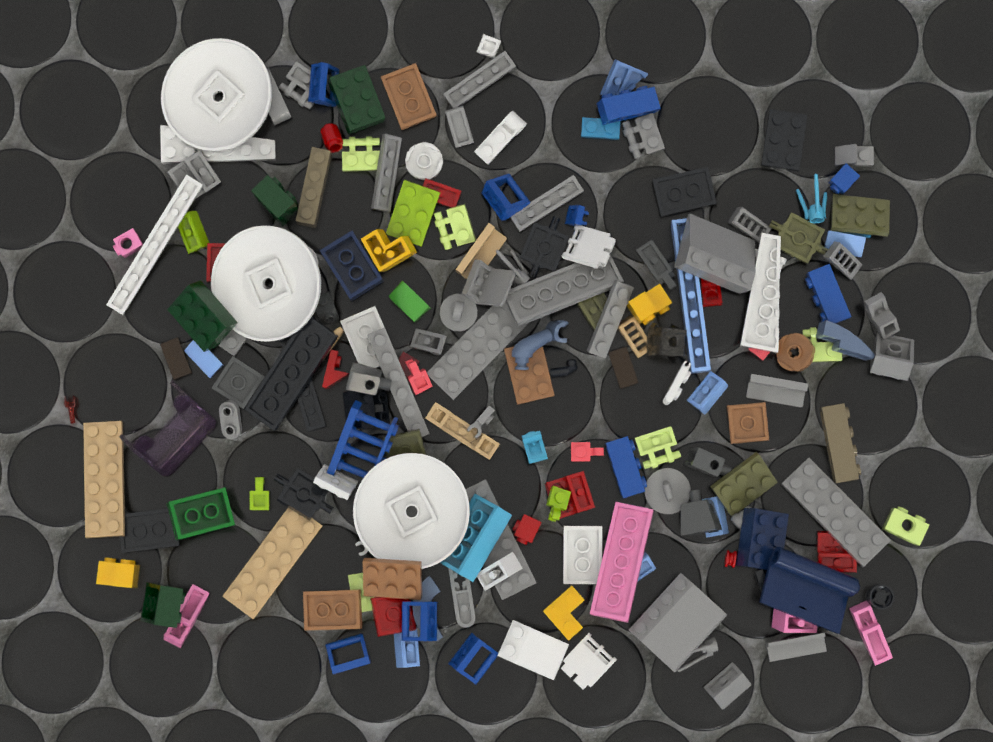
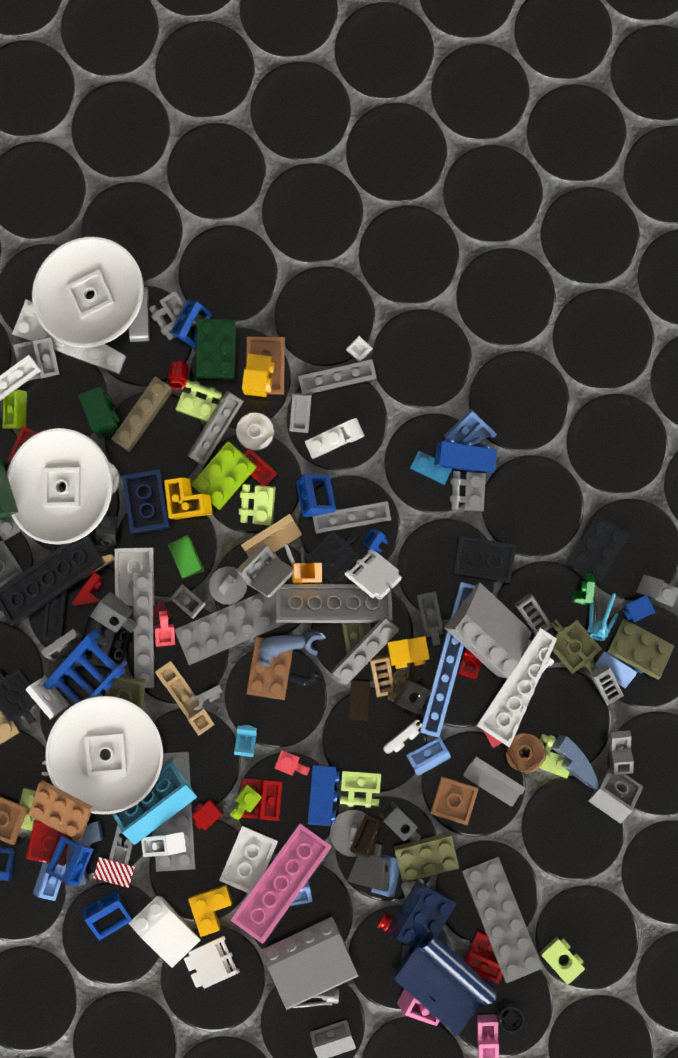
camera: 25 degrees right, 0 degrees up
(330, 428) = (62, 645): none -> light grey plate
(406, 107) = (256, 375): none -> yellow brick
(463, 616) = (114, 872): none -> sticker
(528, 269) = (307, 573): none -> light orange panel
(681, 487) = (366, 836): none -> dark brown tile
(790, 183) = (586, 594): none -> green bracket
(796, 646) = (412, 1030): light grey panel -> none
(827, 295) = (578, 712): blue brick -> none
(839, 443) = (532, 855): dark tan brick -> none

